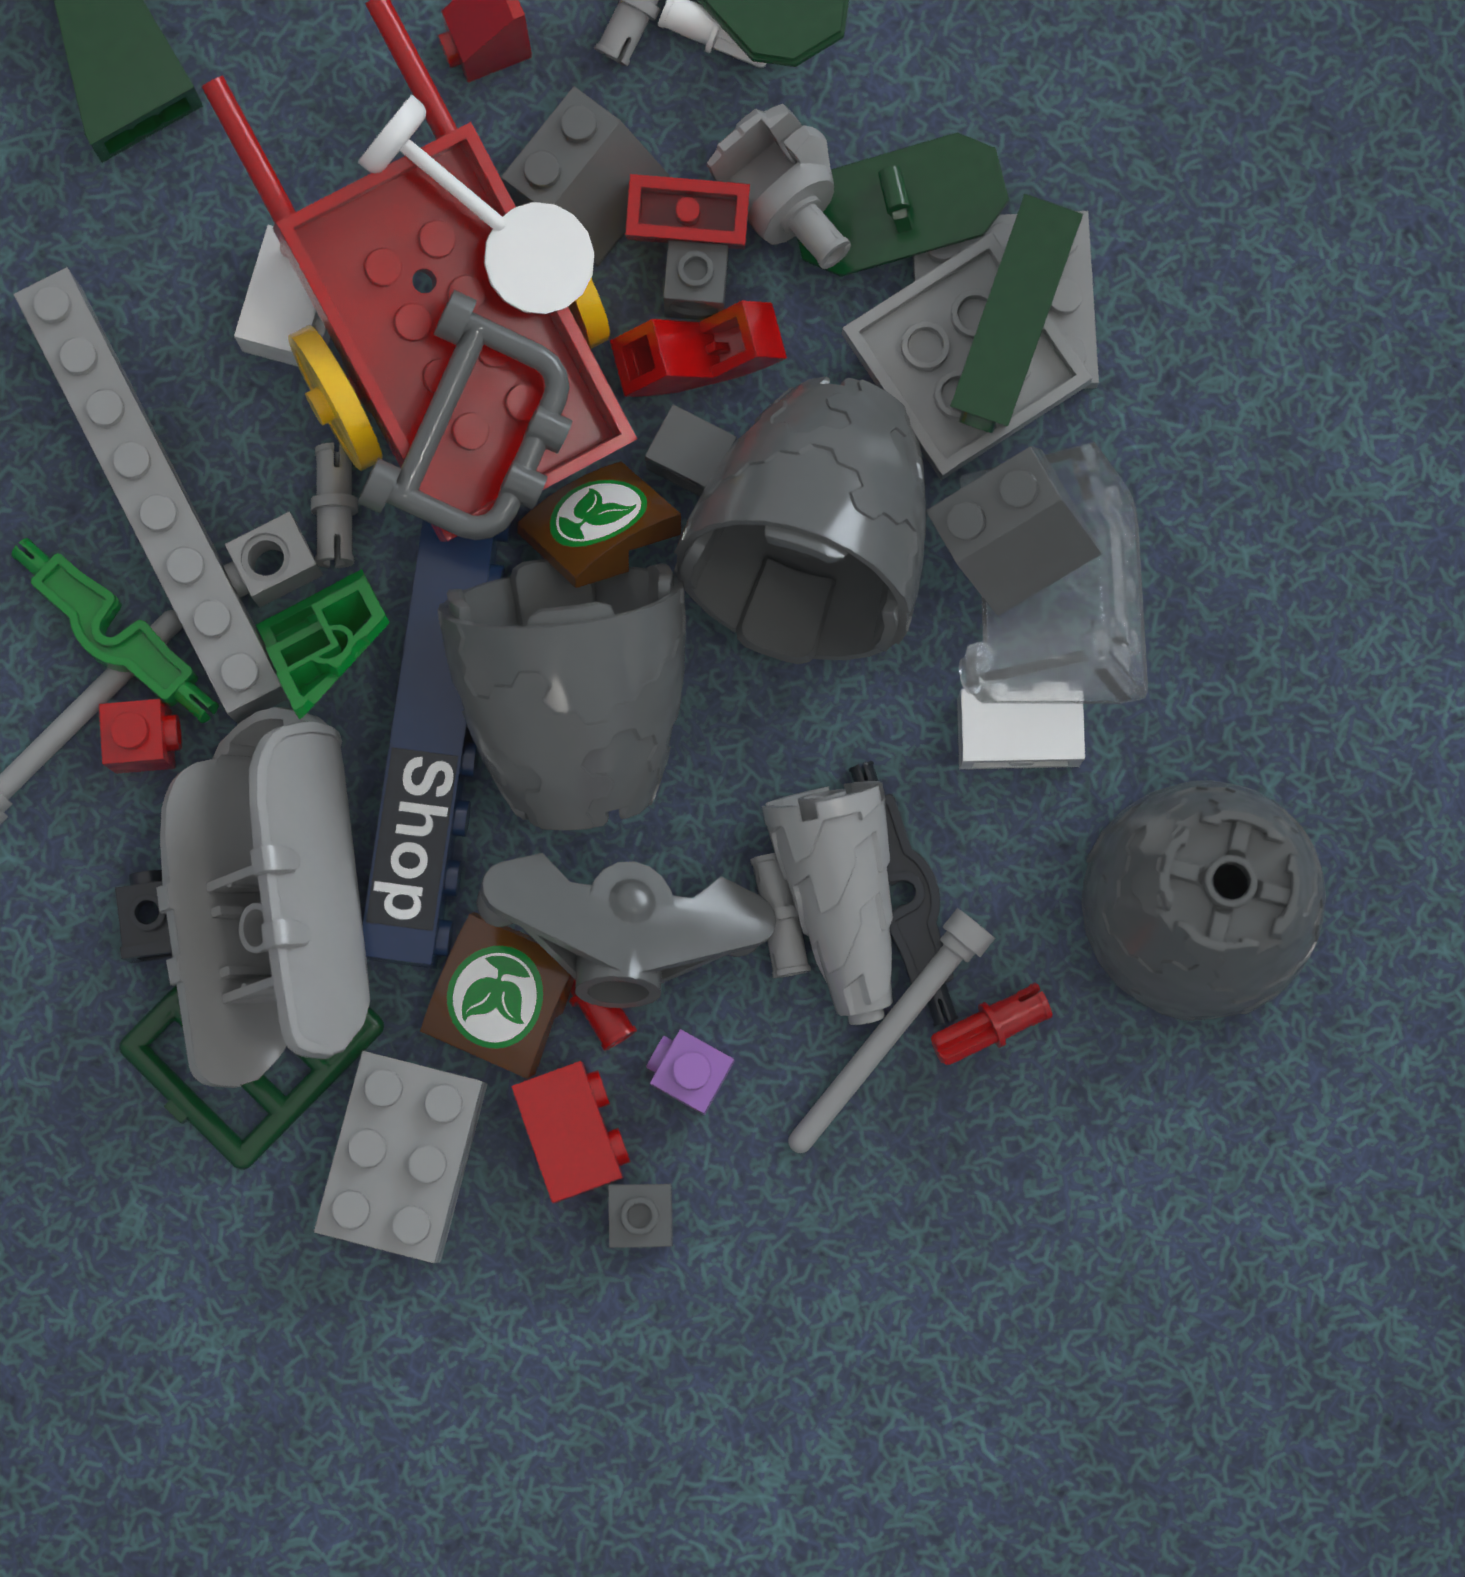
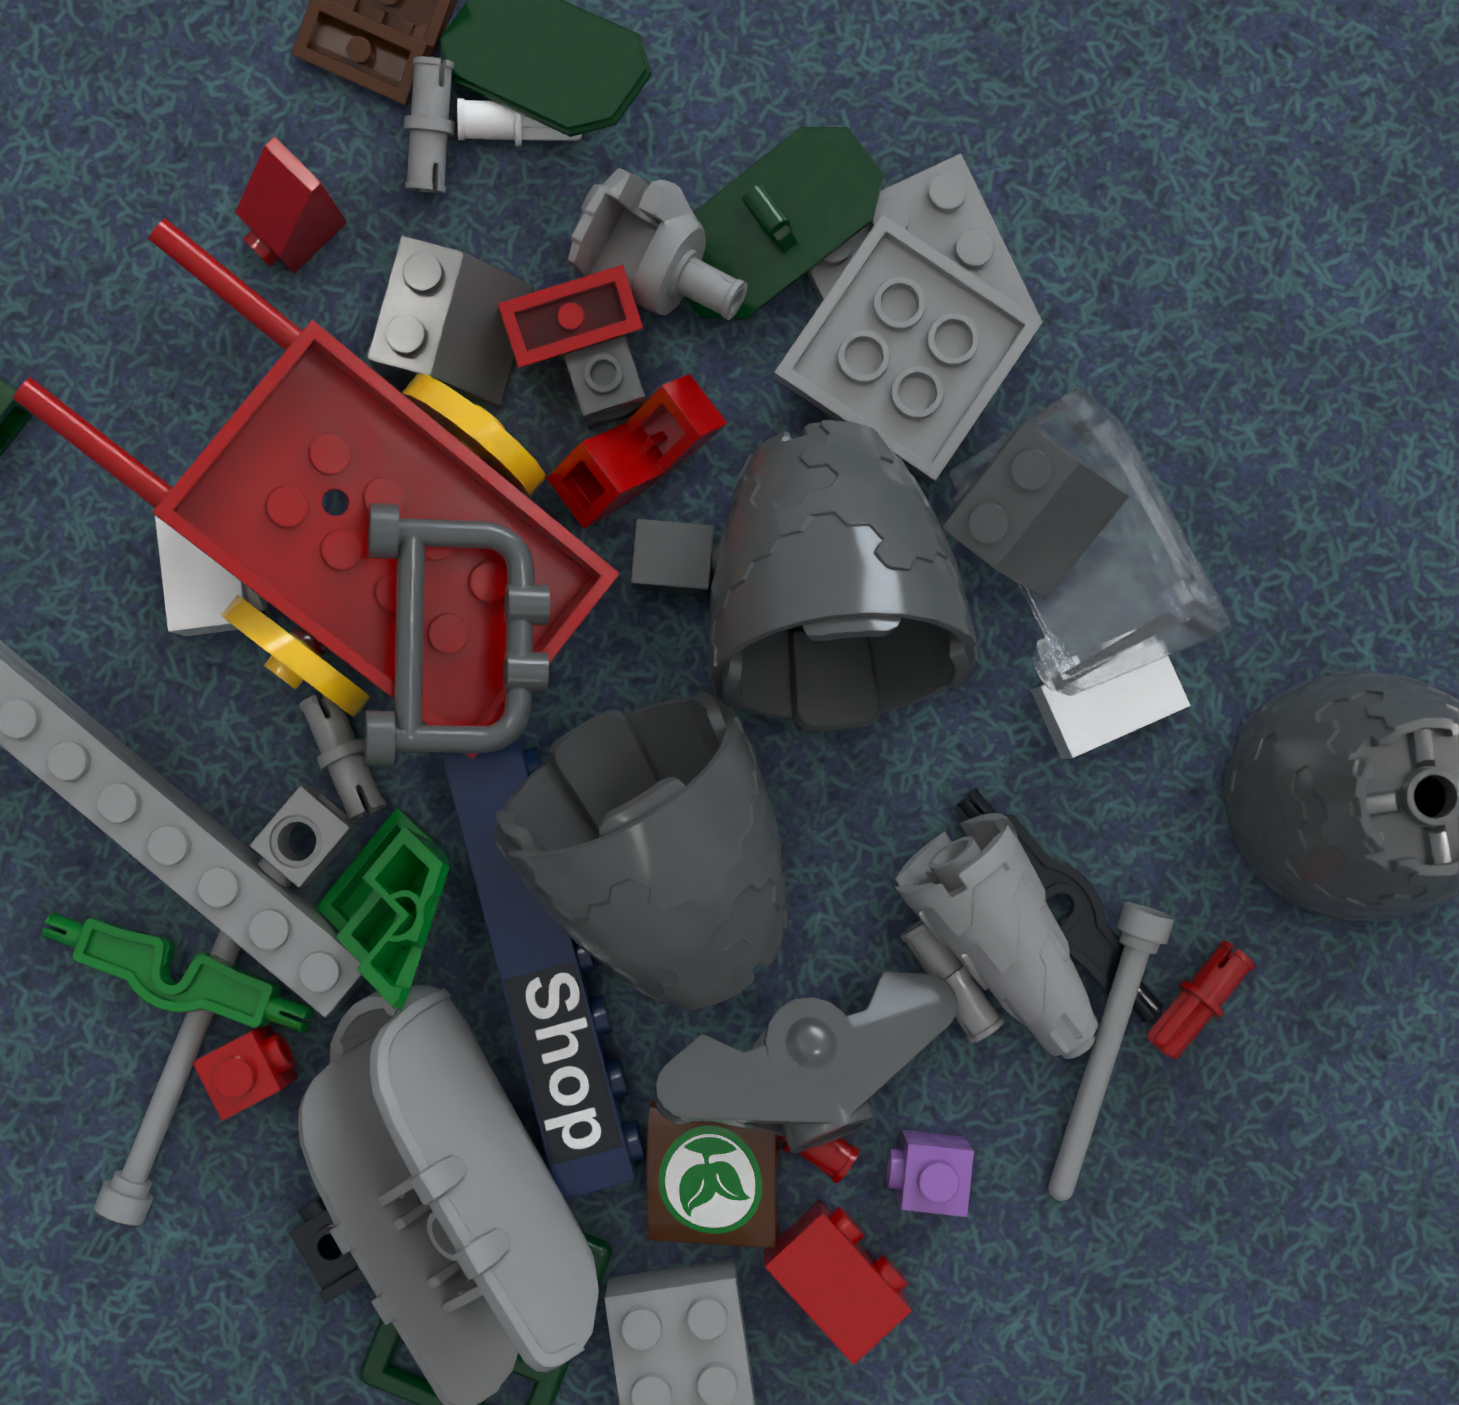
camera: 30 degrees left, 5 degrees up
(535, 253) = (436, 430): white piece -> none
(596, 522) = (613, 671): reddish brown slope -> none
(640, 1215) = (943, 1335): dark grey brick -> none
(1015, 313) = (948, 285): dark green slope -> none

